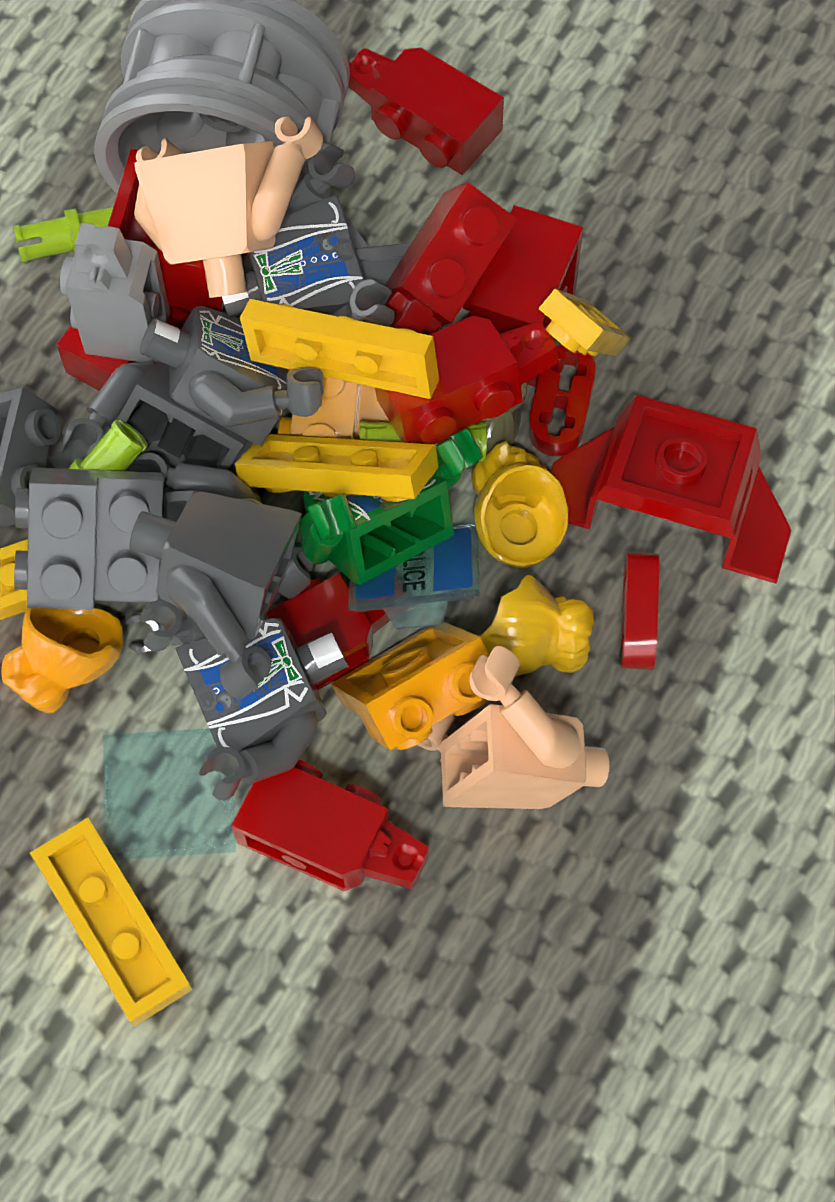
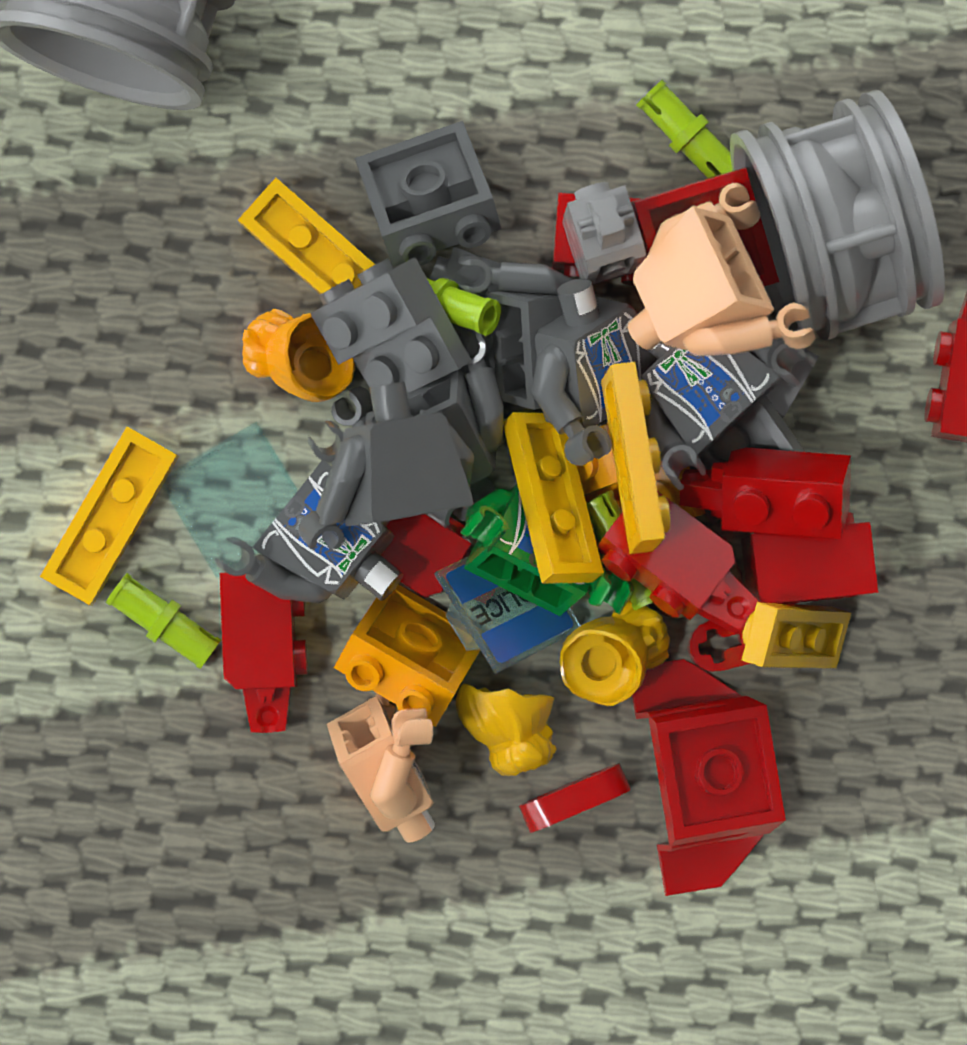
camera: 55 degrees right, 20 degrees up
(249, 920) = (163, 620): none -> lime pin

